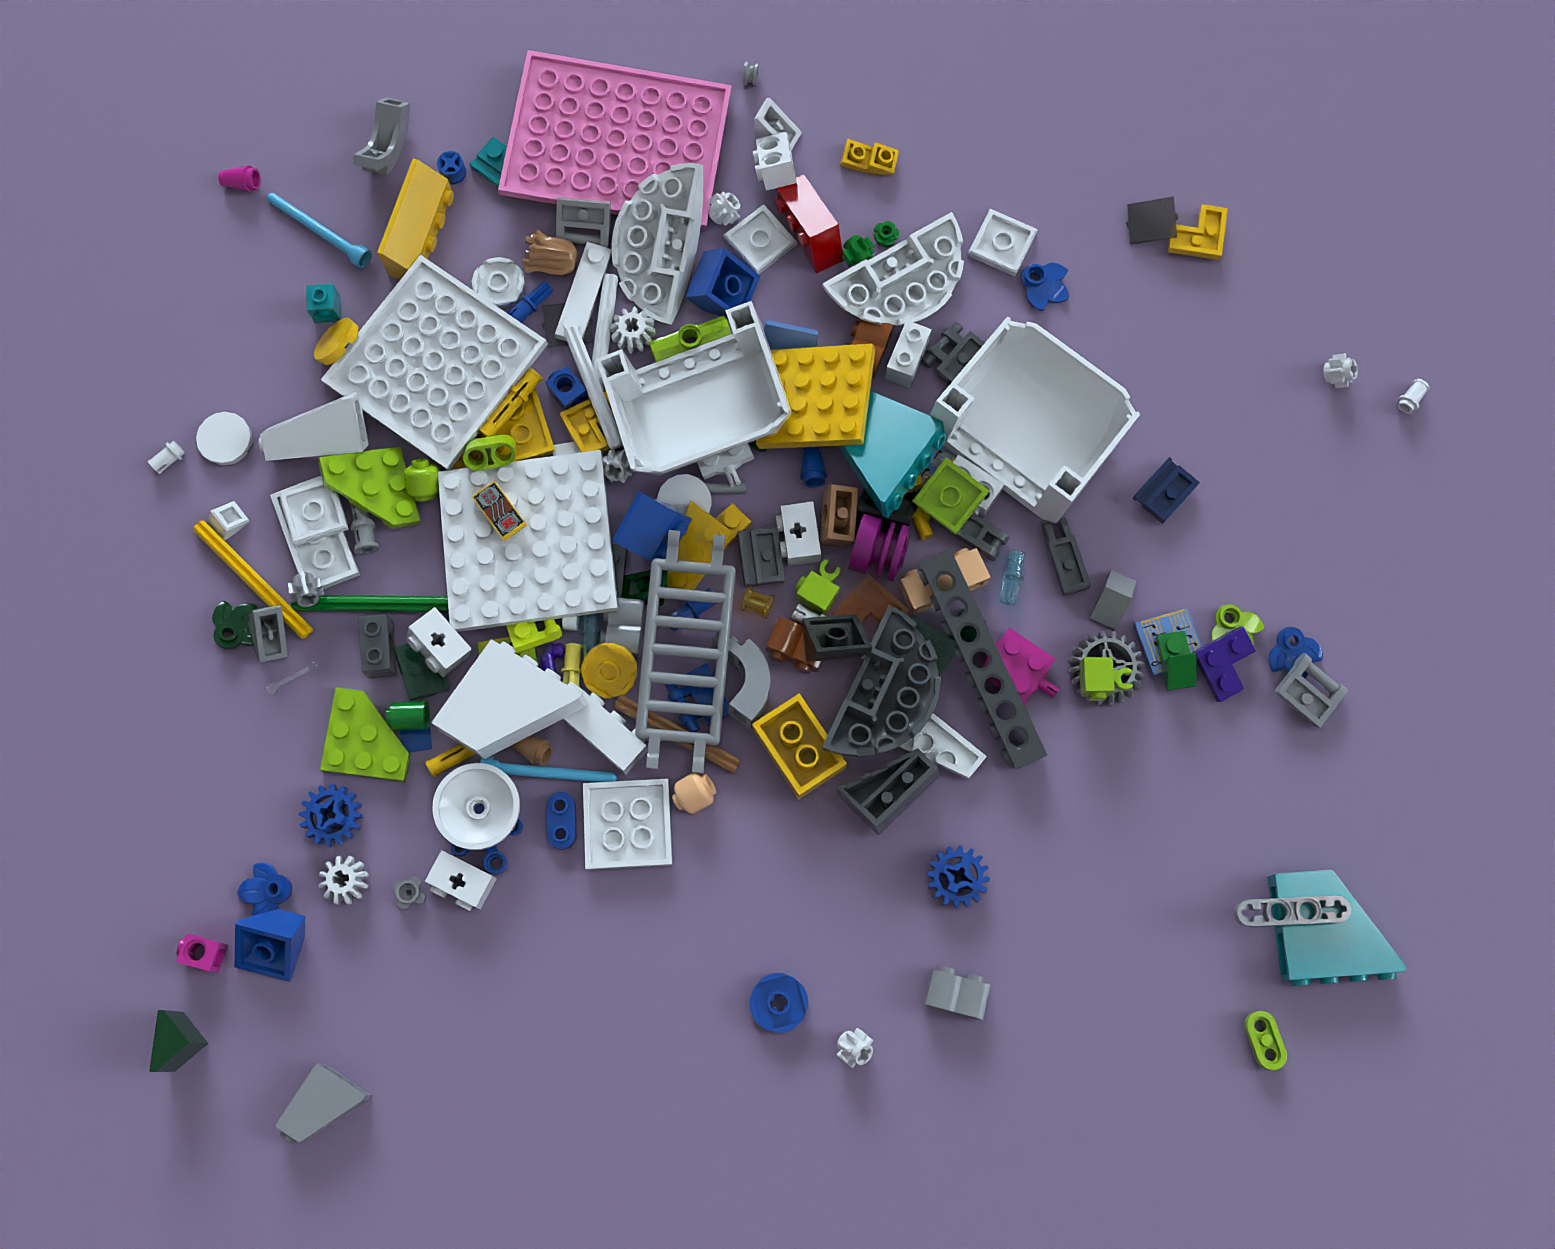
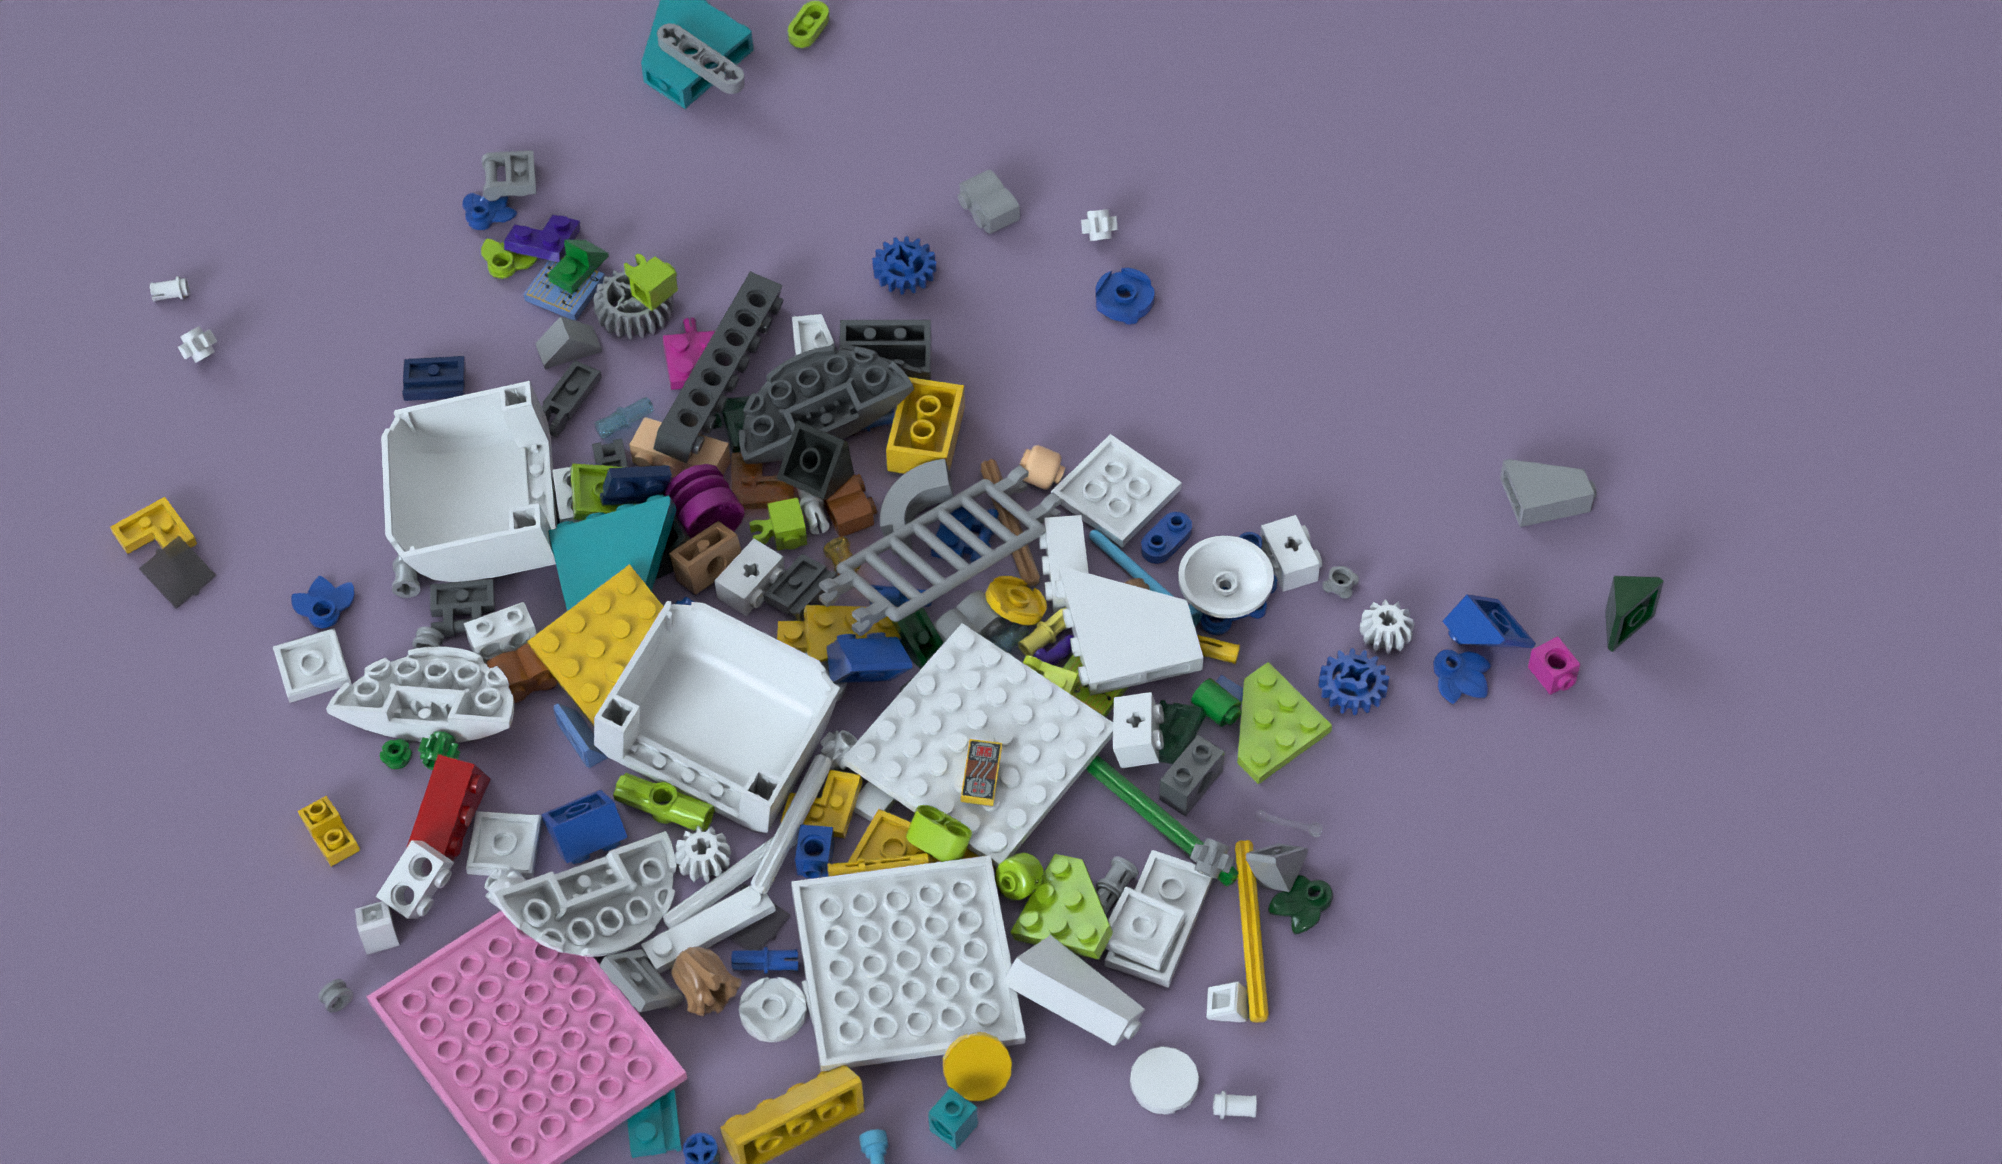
camera: 135 degrees left, 20 degrees down
(931, 496) = (634, 484): none -> dark blue plate
(949, 313) = (427, 638): none -> light grey bush

